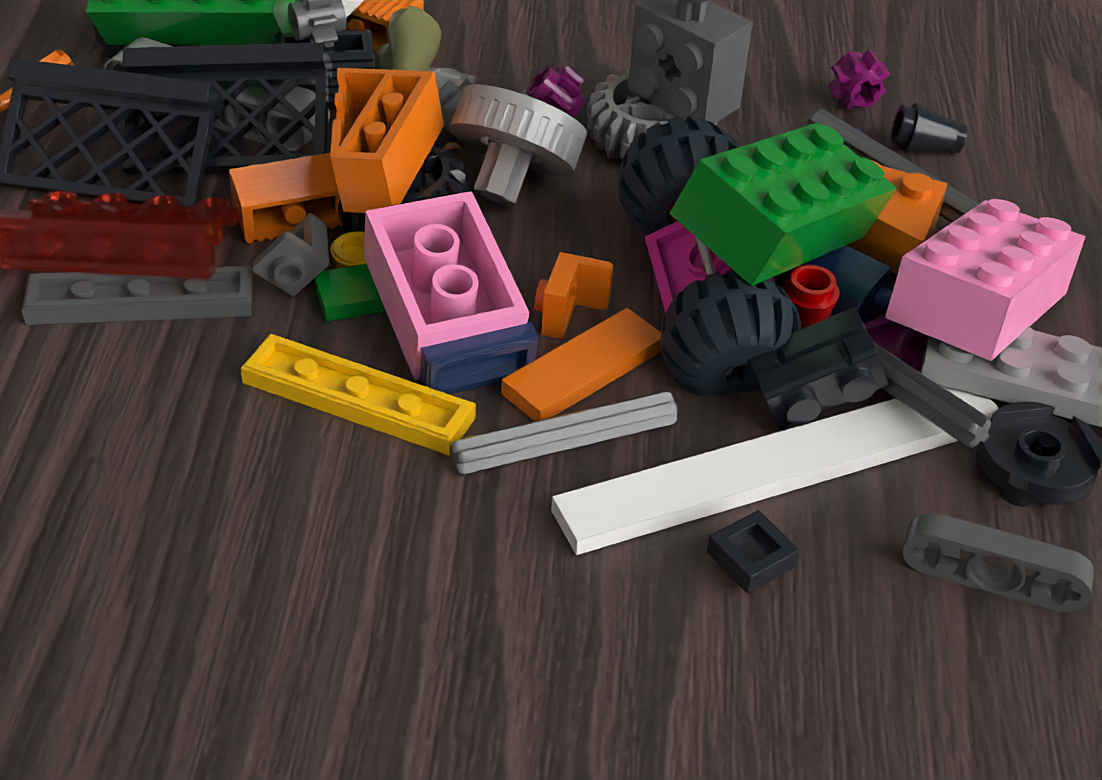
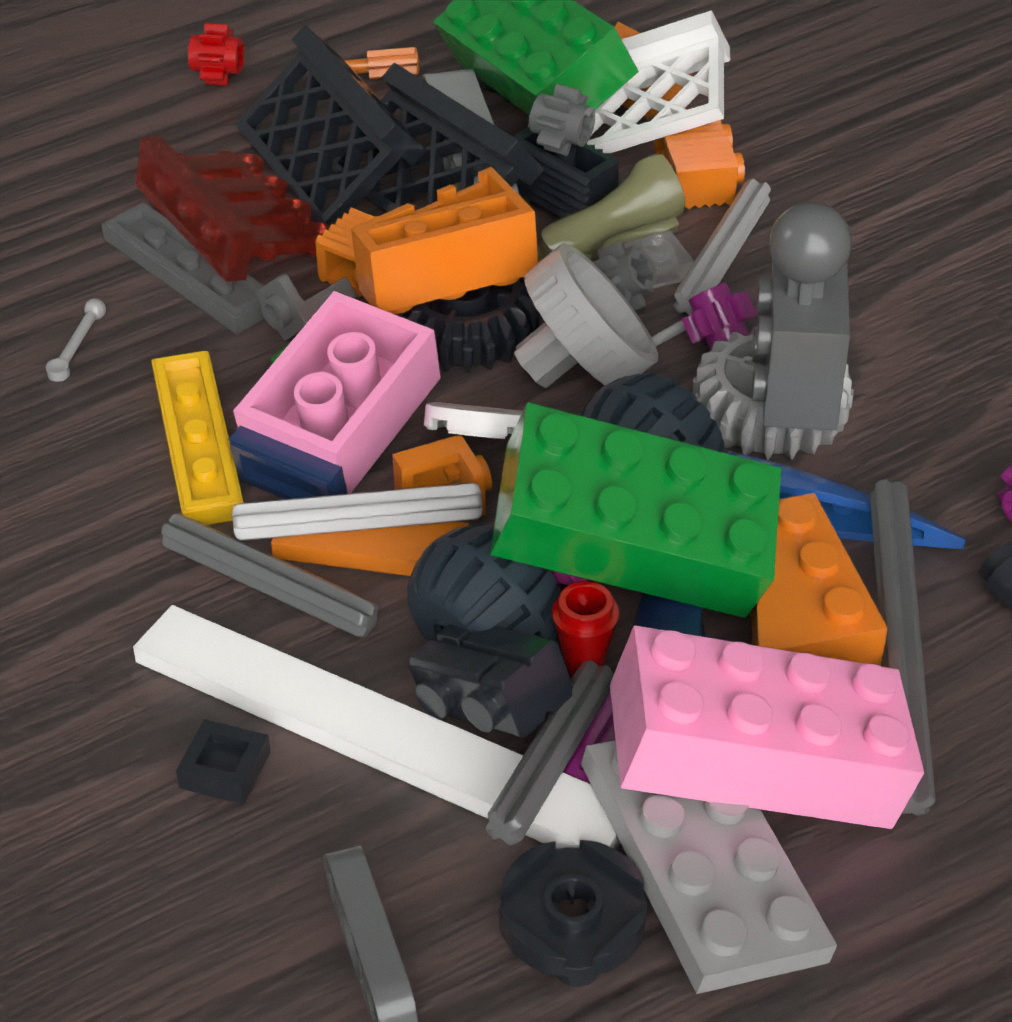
camera: 55 degrees right, 0 degrees up
(167, 429) = (58, 368): none -> light grey hinge
(466, 53) = (723, 243): none -> light grey axle
(552, 234) = (471, 419): none -> white tile
(566, 350) = (357, 511): none -> axle

